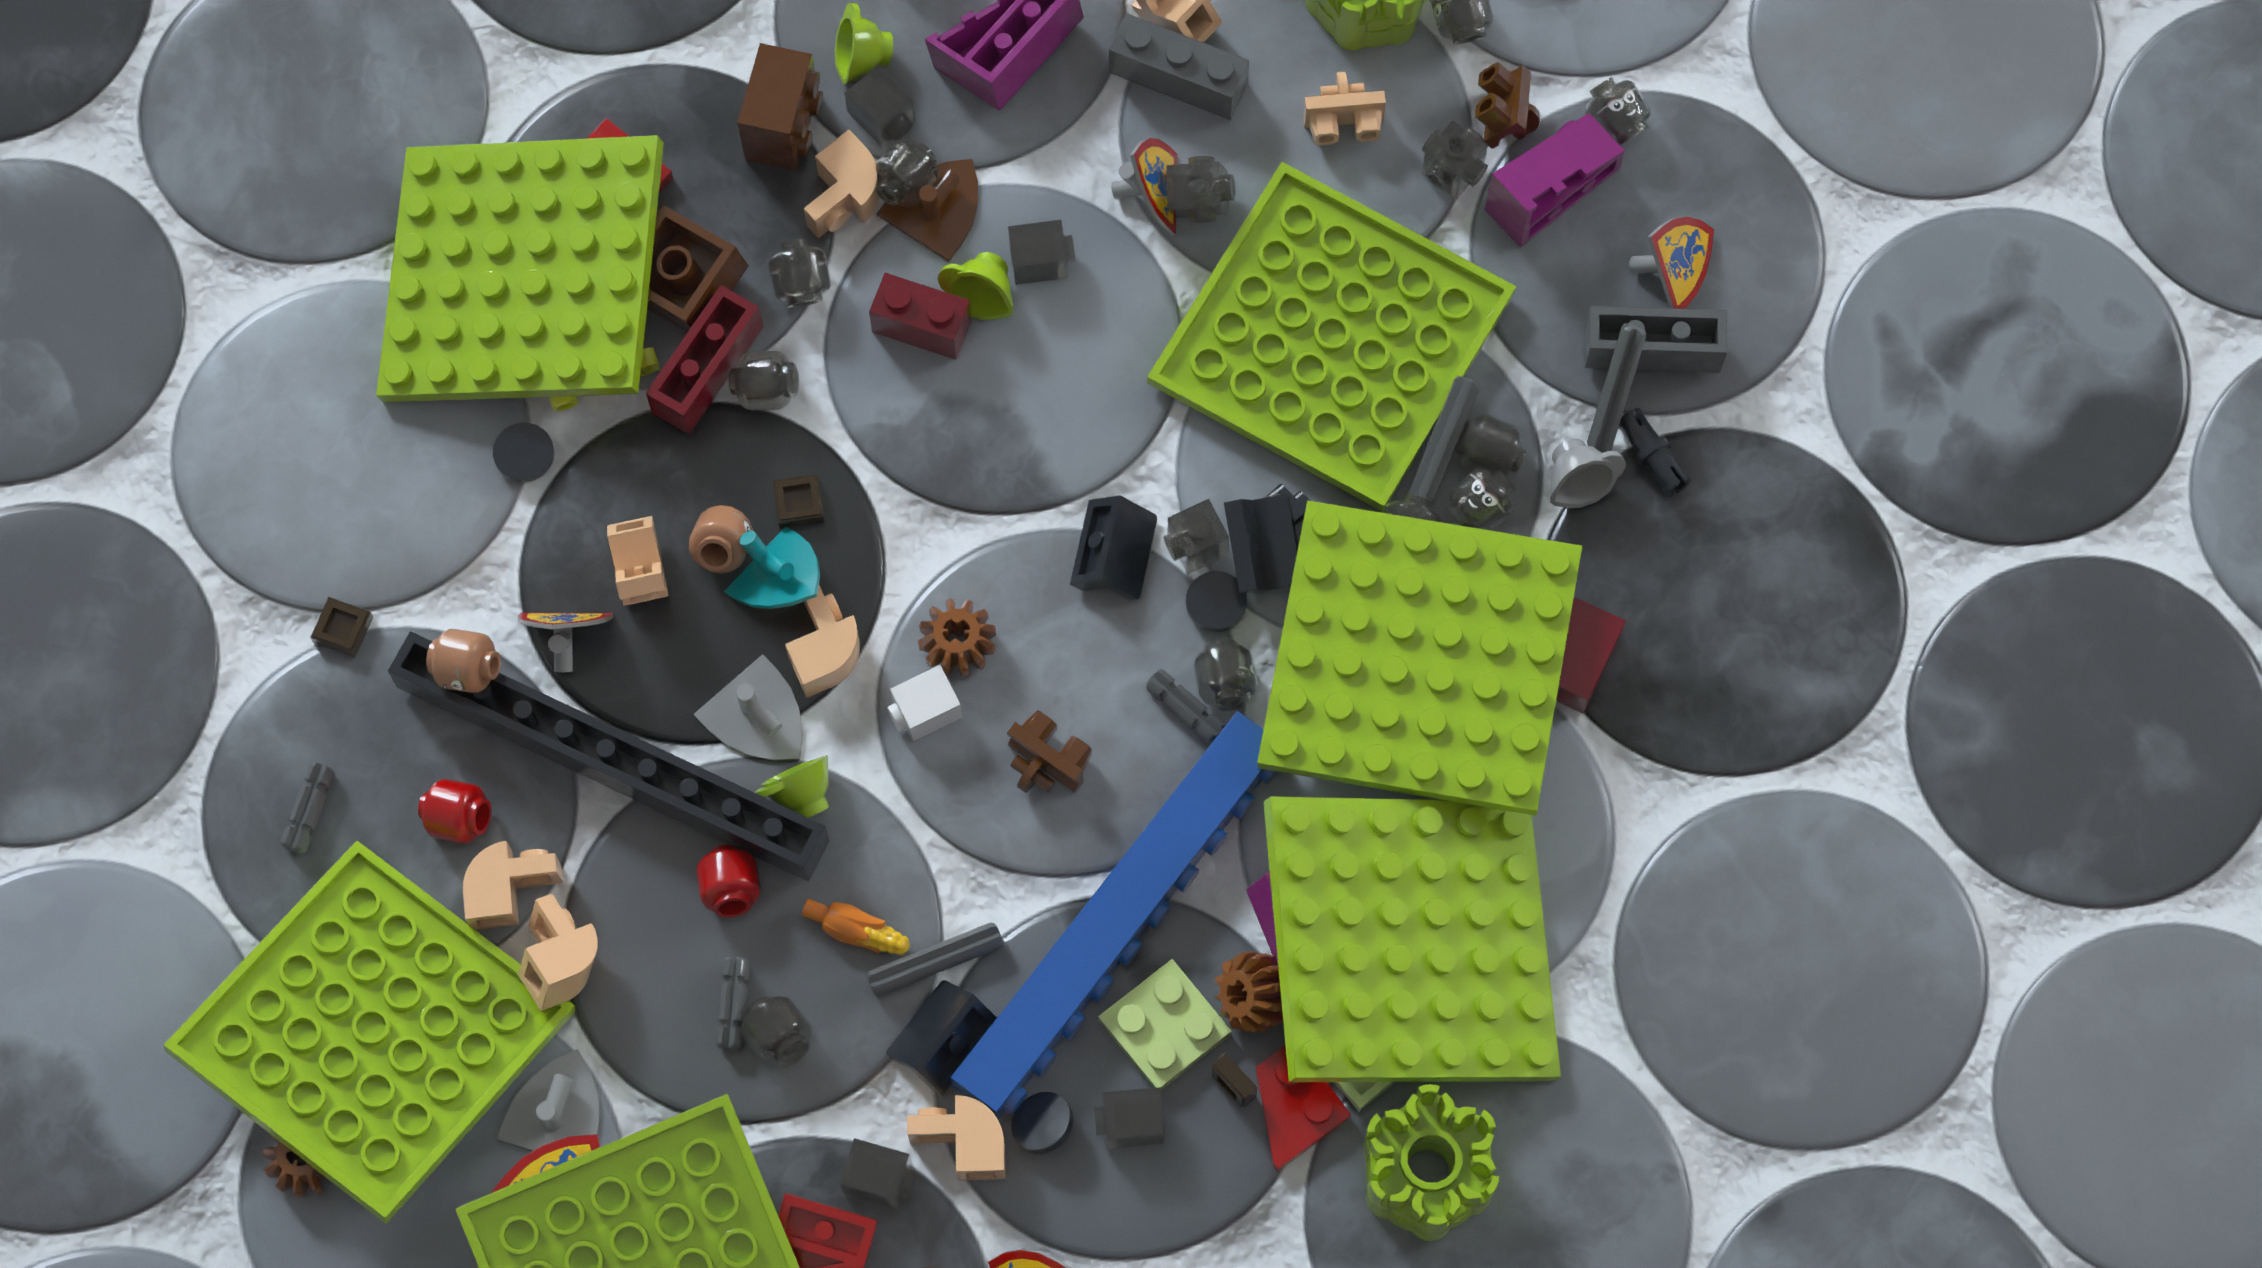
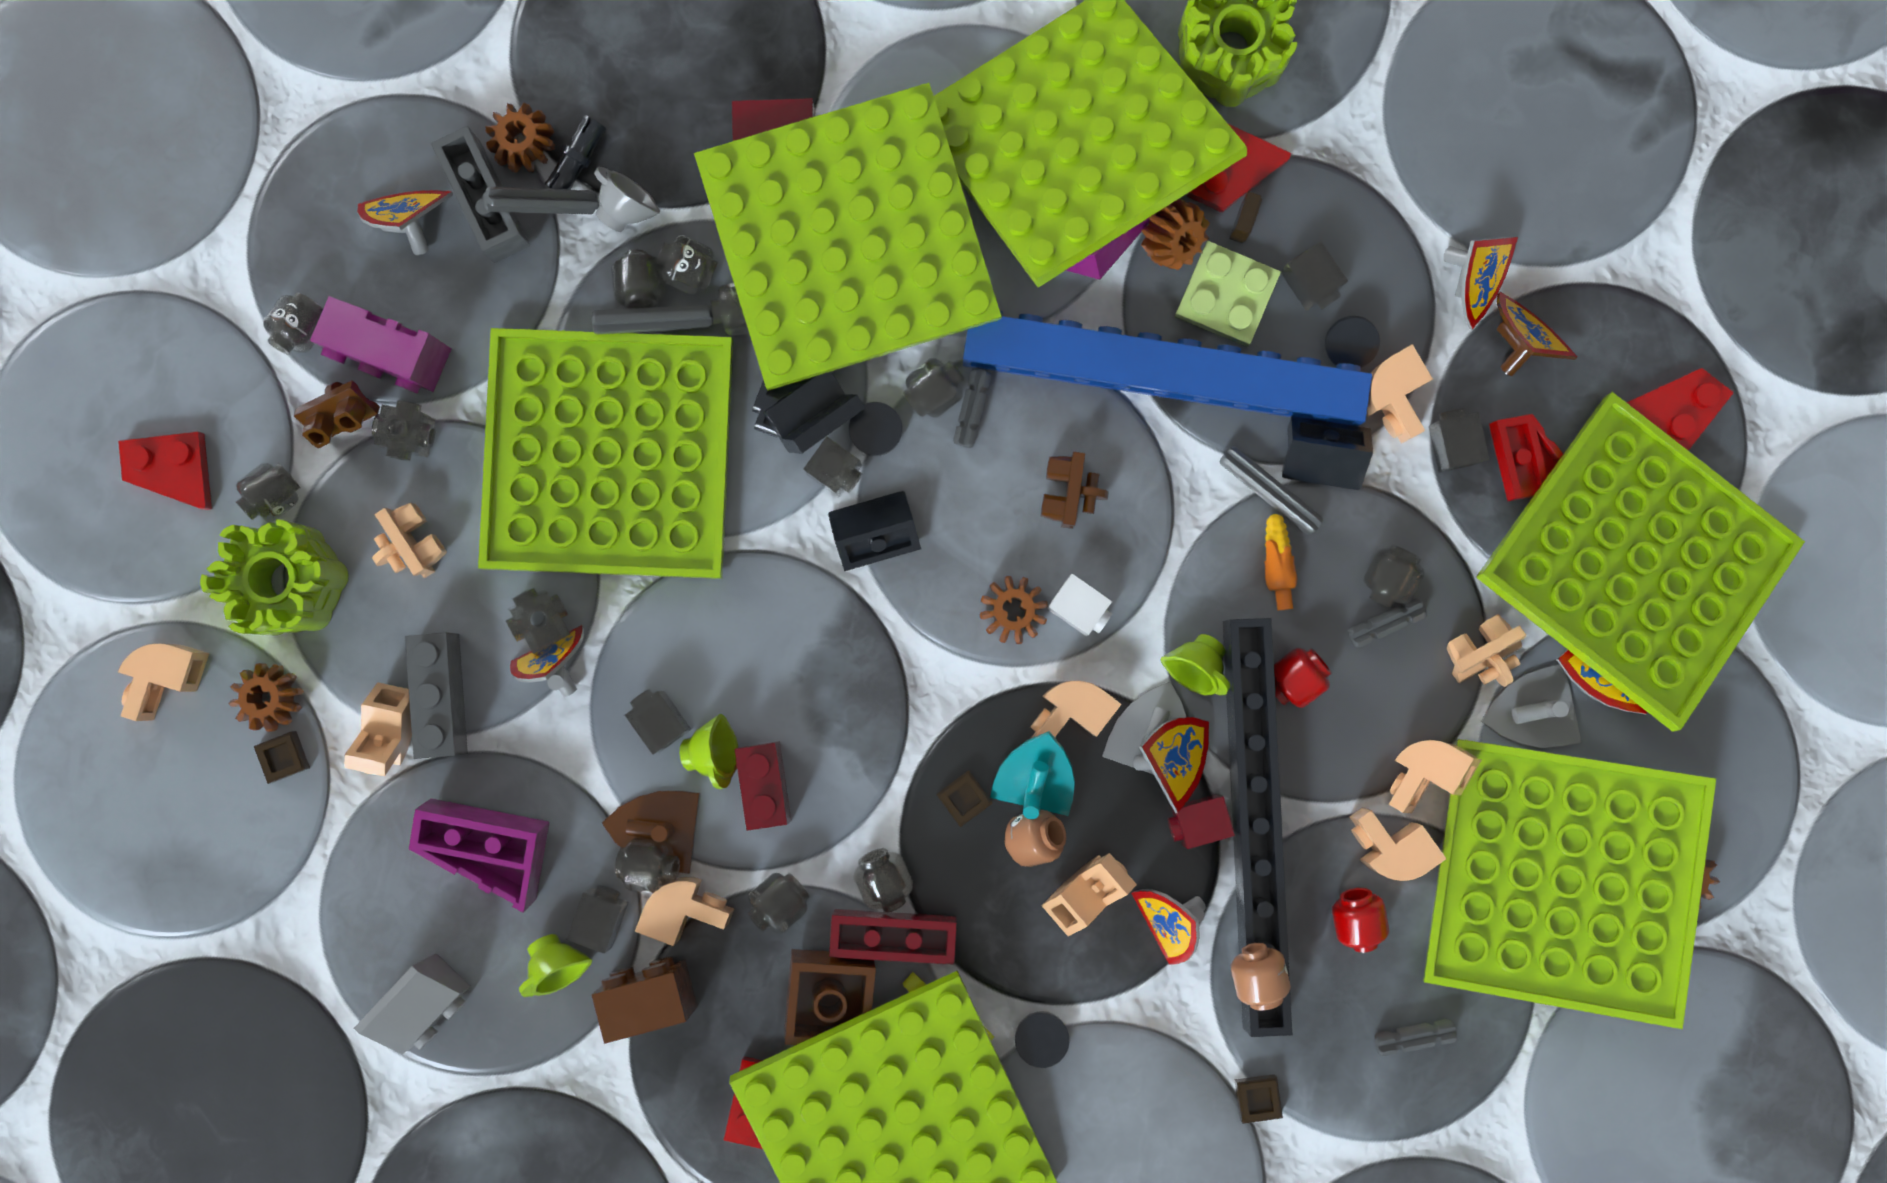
camera: 115 degrees left, 15 degrees up
(643, 706) = (1201, 822): none -> dark red brick
(645, 1063) = (1501, 642): none -> light nougat hips
(719, 712) = (1176, 757): none -> shield
(1705, 395) = (531, 126): none -> dark orange gear

